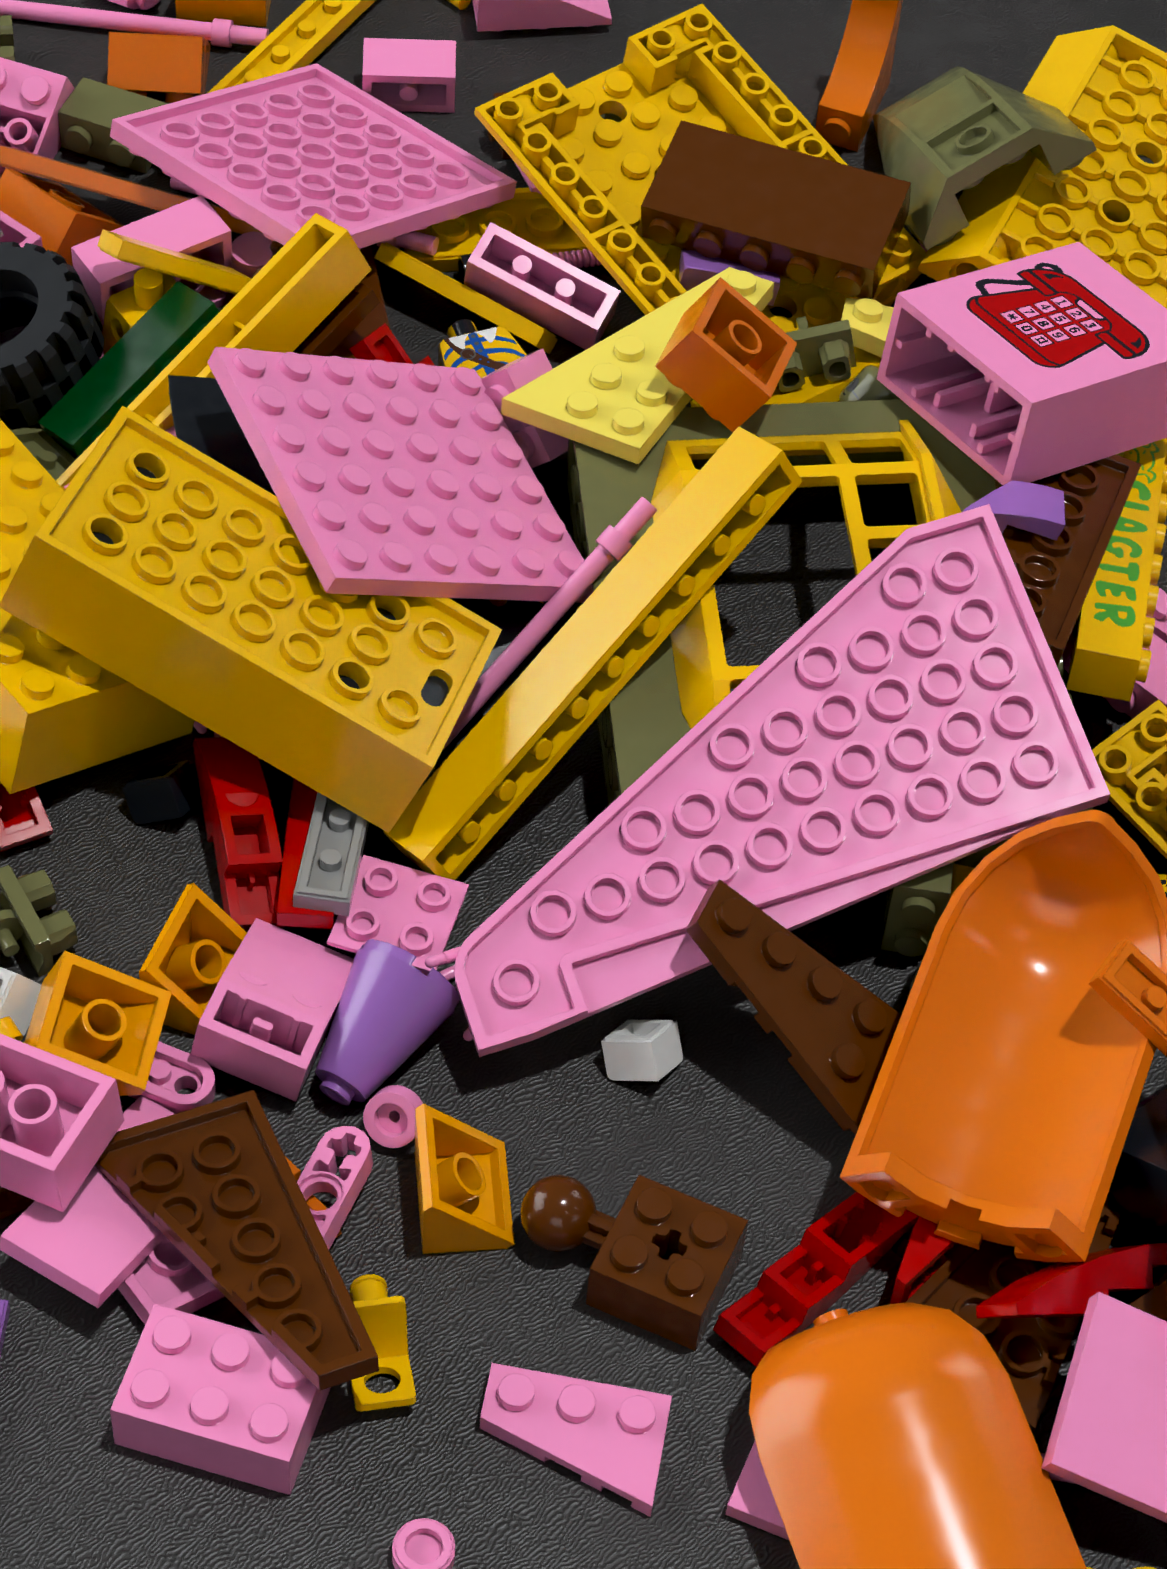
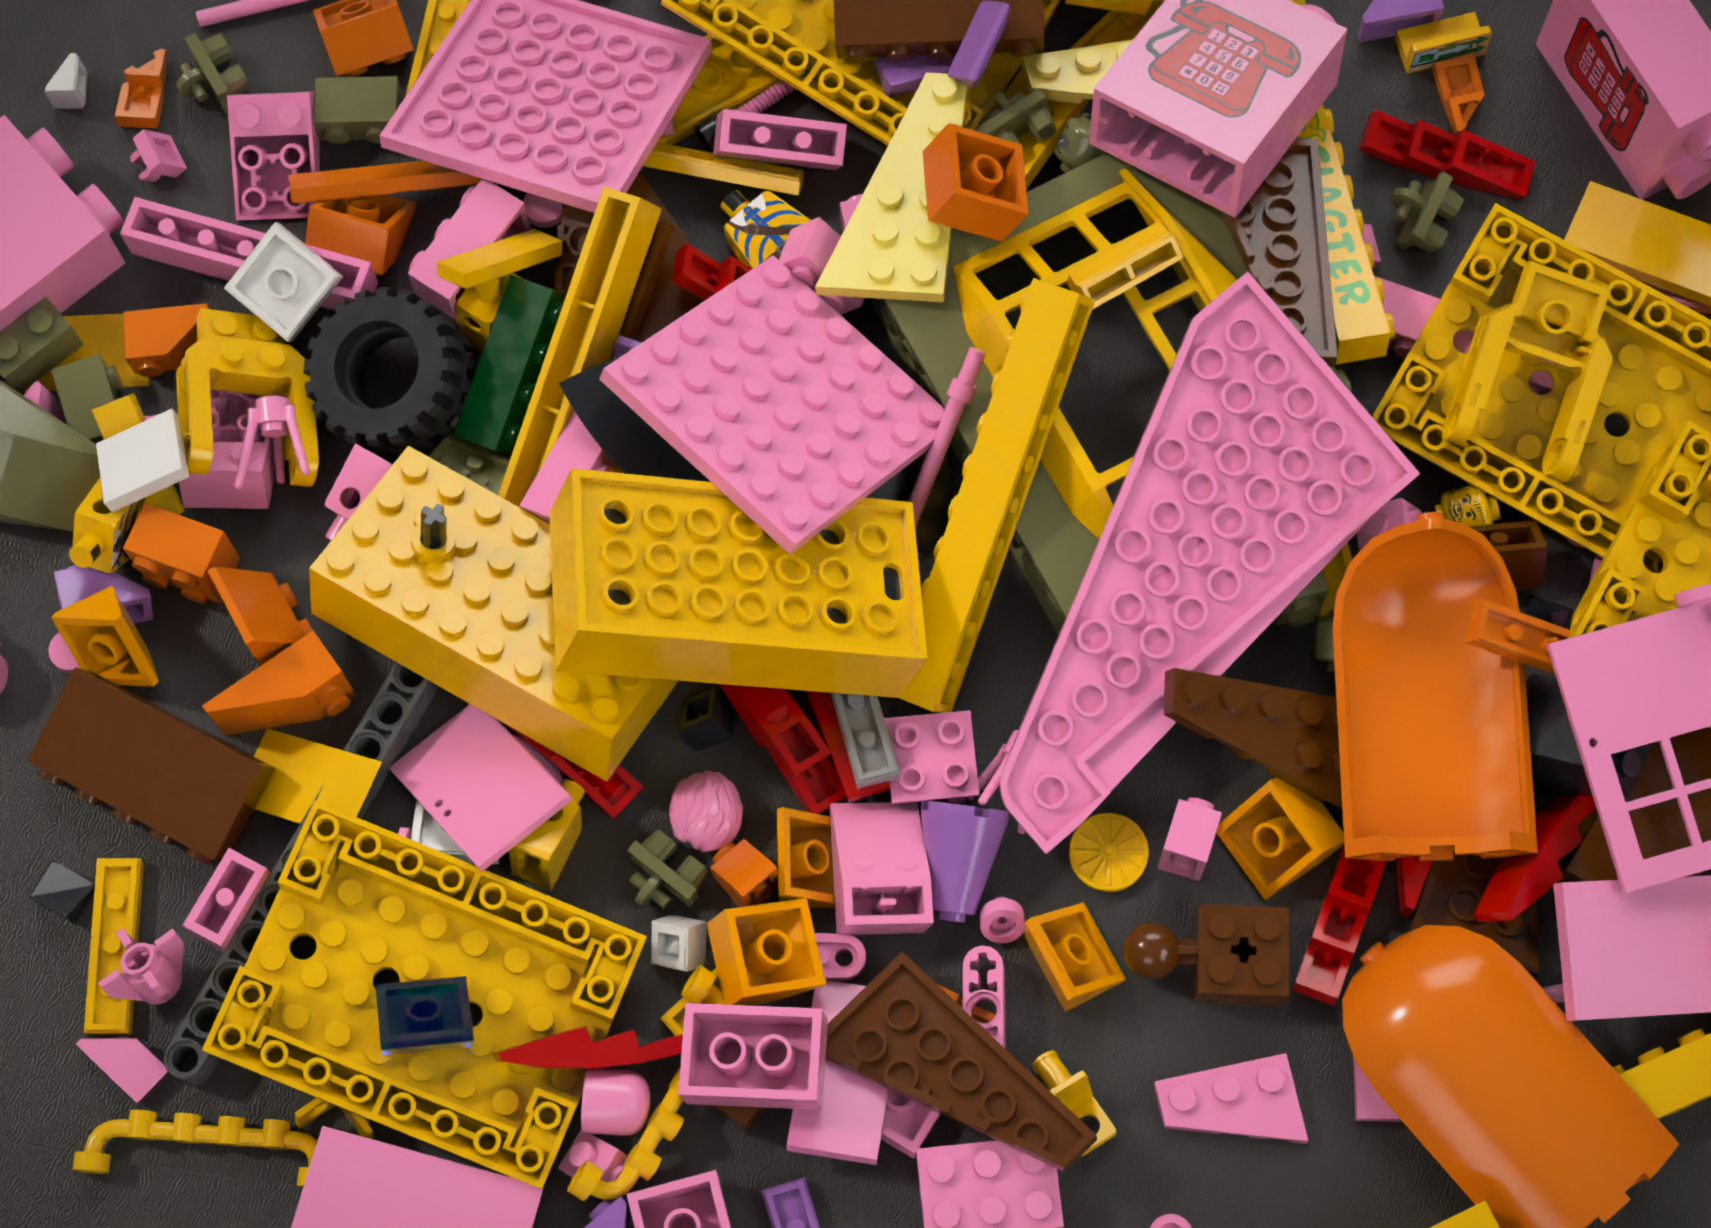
camera: 15 degrees left, 20 degrees up
(109, 877) = (706, 811): none -> bright pink hair
(116, 941) = (745, 873): none -> orange slope
(561, 1101) = (1108, 852): none -> yellow wheel
(642, 1050) = (1148, 789): white slope -> none
(661, 1106) = (1190, 838): none -> bright pink brick
(777, 1153) = (1279, 836): none -> light orange slope
(801, 250) = (979, 42): none -> medium lavender slope
(858, 477) = (1126, 265): none -> yellow piece
(1027, 507) = (1253, 234): medium lavender slope -> none

